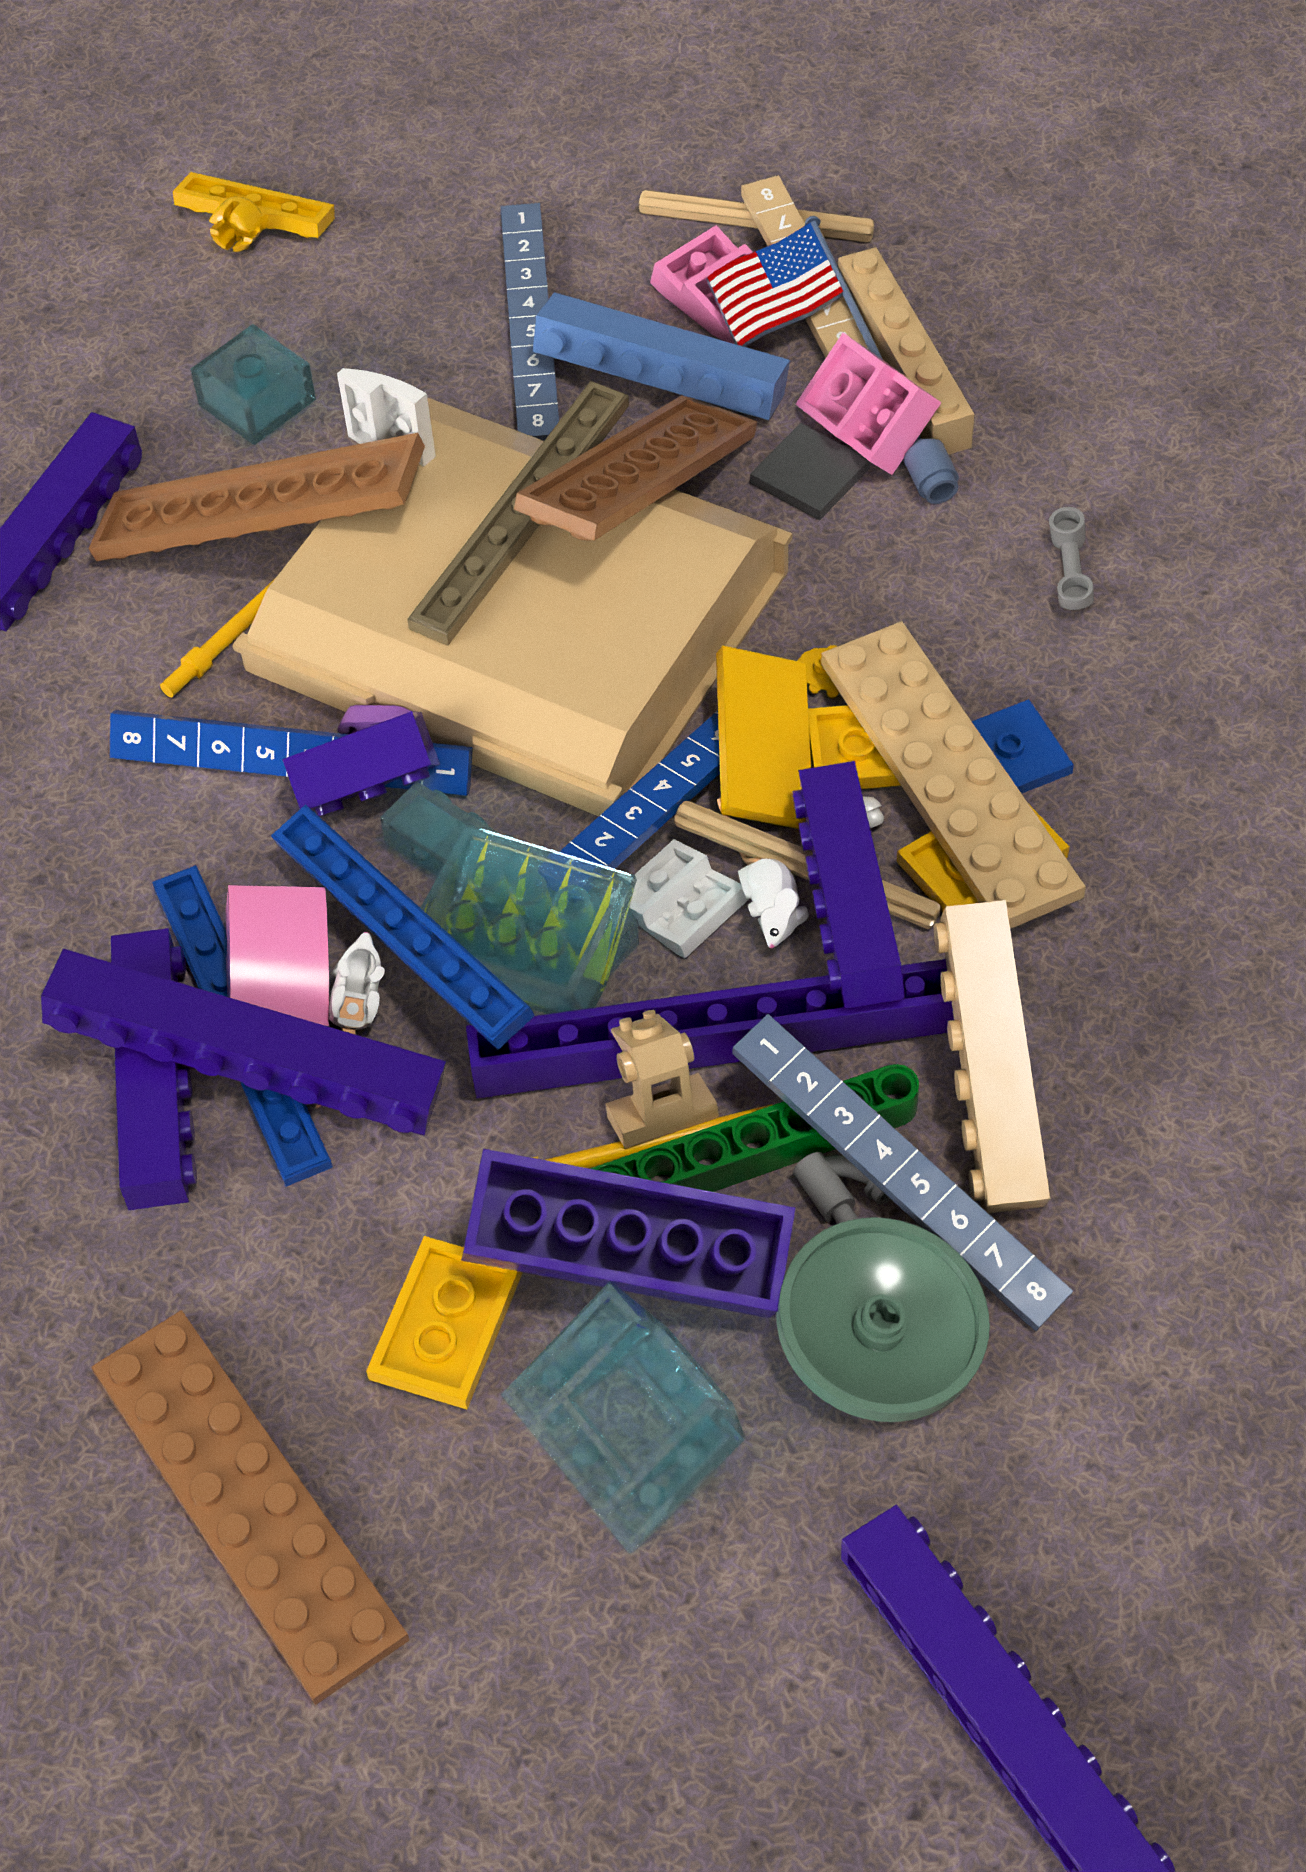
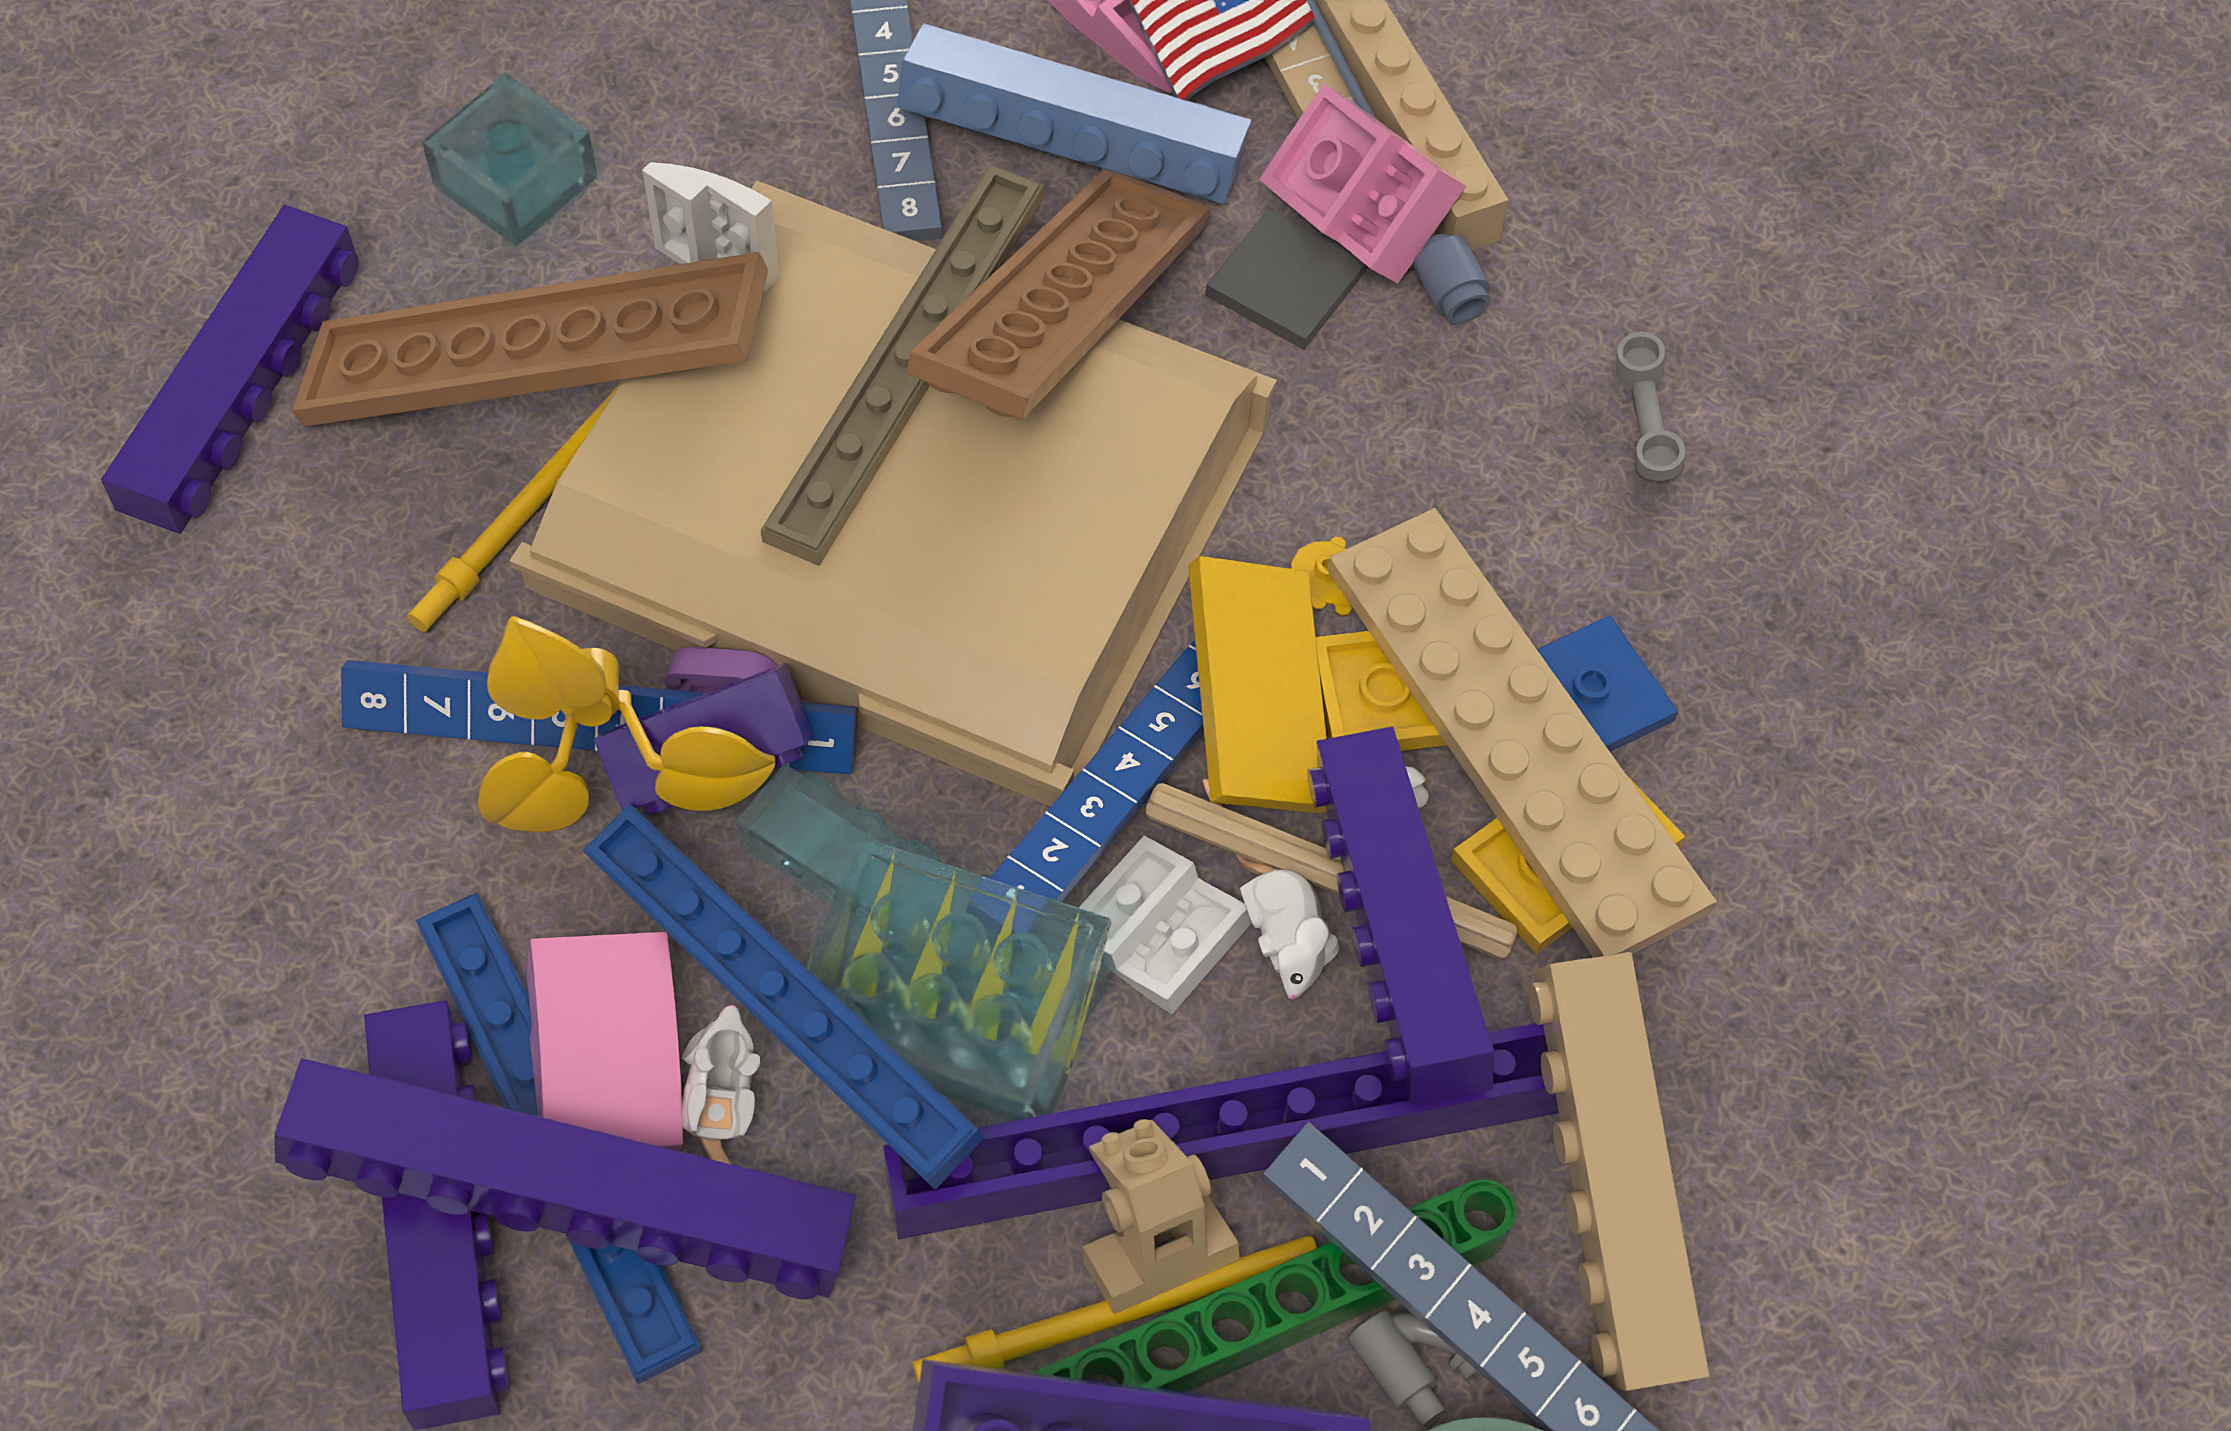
camera: 10 degrees left, 5 degrees up
(247, 699) = (544, 673): none -> yellow plant

